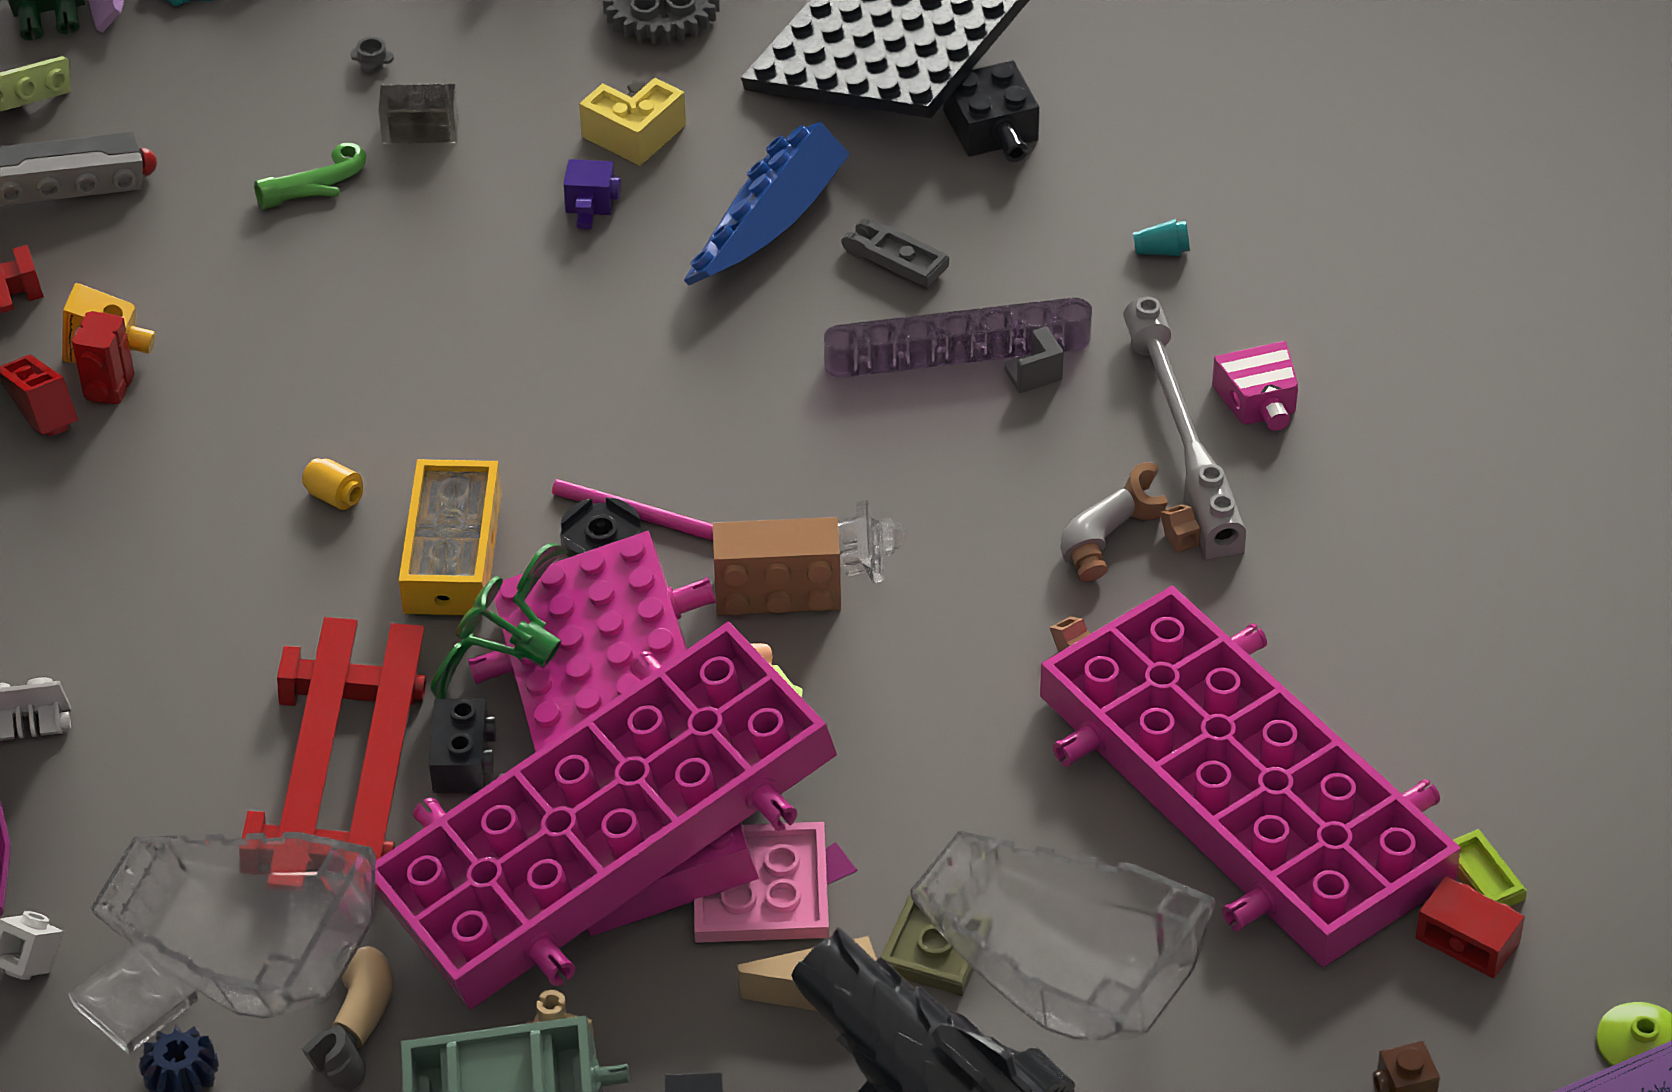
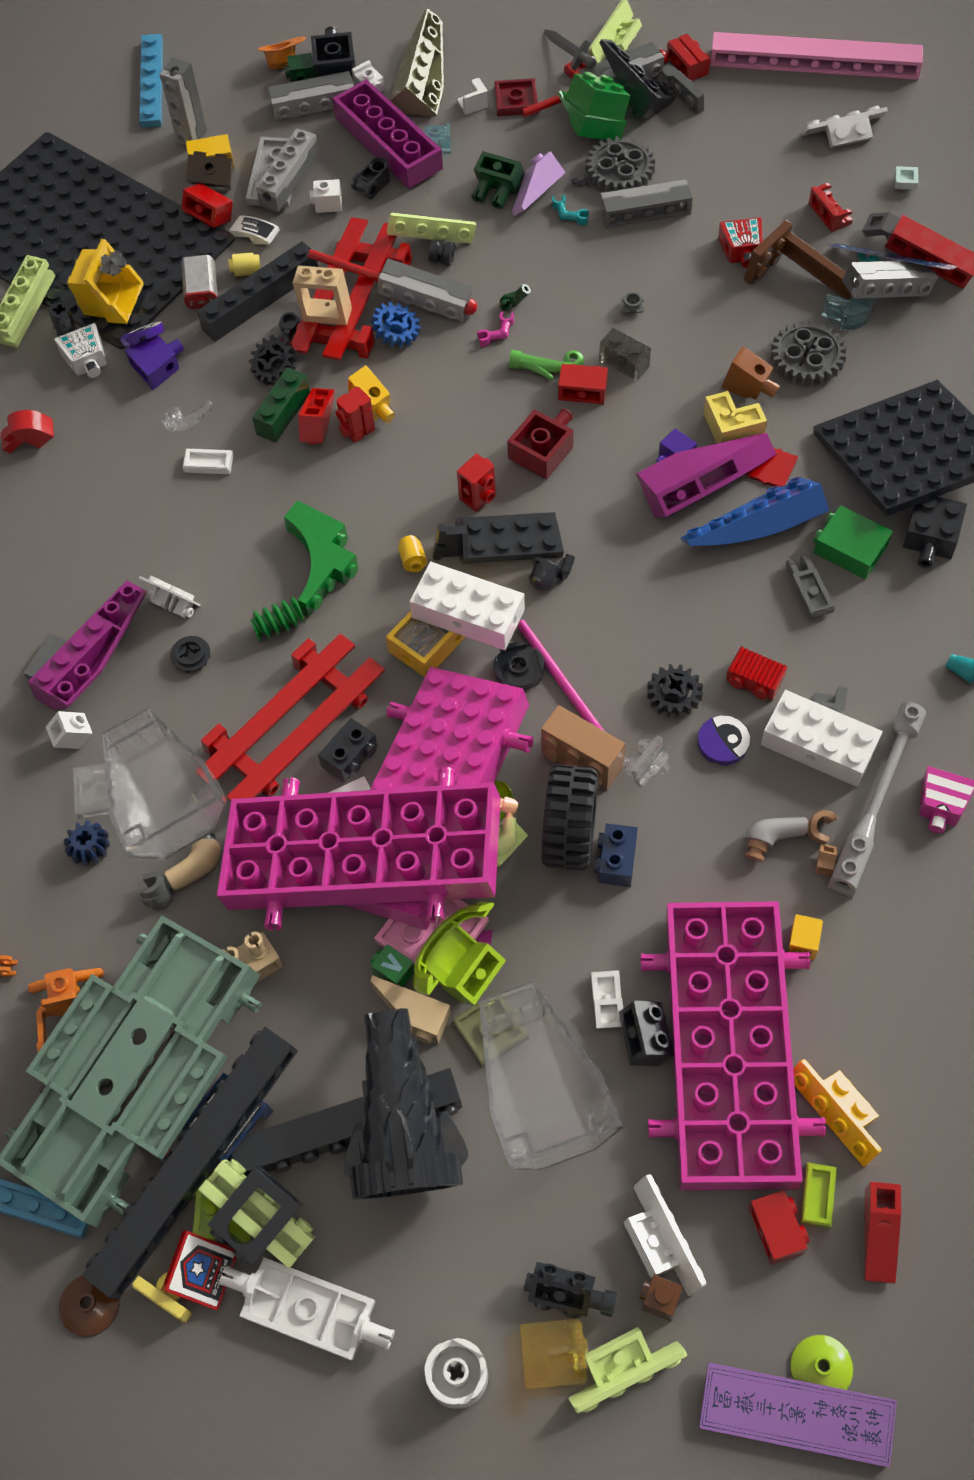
camera: 40 degrees right, 15 degrees up
(41, 116) = (441, 251): none -> black wheel
(56, 230) = (395, 324): none -> blue gear
(113, 754) = (198, 647): none -> black gear
(193, 536) = (324, 541): none -> green arch
(197, 125) = (514, 298): none -> dark green arm
(212, 653) = (276, 619): none -> green piece
(217, 174) = (486, 336): none -> dark pink arm
(355, 350) = (476, 482): none -> red brick
(391, 174) = (582, 383): none -> red brick
(399, 264) = (541, 442): none -> dark red brick
(441, 403) = (500, 538): none -> black hinge
(487, 479) = (467, 605): none -> white brick
(530, 639) = (410, 716): green plant -> none
(544, 406) = (546, 572): none -> black piece
(612, 56) = (749, 376): none -> dark orange torso
(643, 196) = (700, 471): none -> magenta wedge
(725, 149) = (774, 470): none -> red piece
(745, 942) = (392, 966): none -> green brick
(831, 449) = (674, 691): none -> black gear
(835, 886) = (456, 959): none -> lime piece
(841, 634) = (569, 817): none -> black tyre
(904, 176) = (852, 541): none -> green brick
(916, 376) = (756, 674): none -> red brick
(924, 662) = (617, 856): none -> dark blue brick
(939, 472) = (723, 740): none -> tile
(953, 337) = (812, 662): clear purple beam -> none
(1051, 824) = (606, 998): none -> white slope
(1060, 401) = (821, 738): none -> white brick
(1068, 632) = (709, 889): medium nougat piece -> none
(1137, 822) = (646, 1033): none -> black brick
(1230, 608) = (805, 935): none -> yellow panel
(1345, 1019) = (660, 1239): none -> white bracket
(1444, 763) = (841, 1107): none -> yellow bracket
(1585, 851) = (882, 1231): none -> red slope

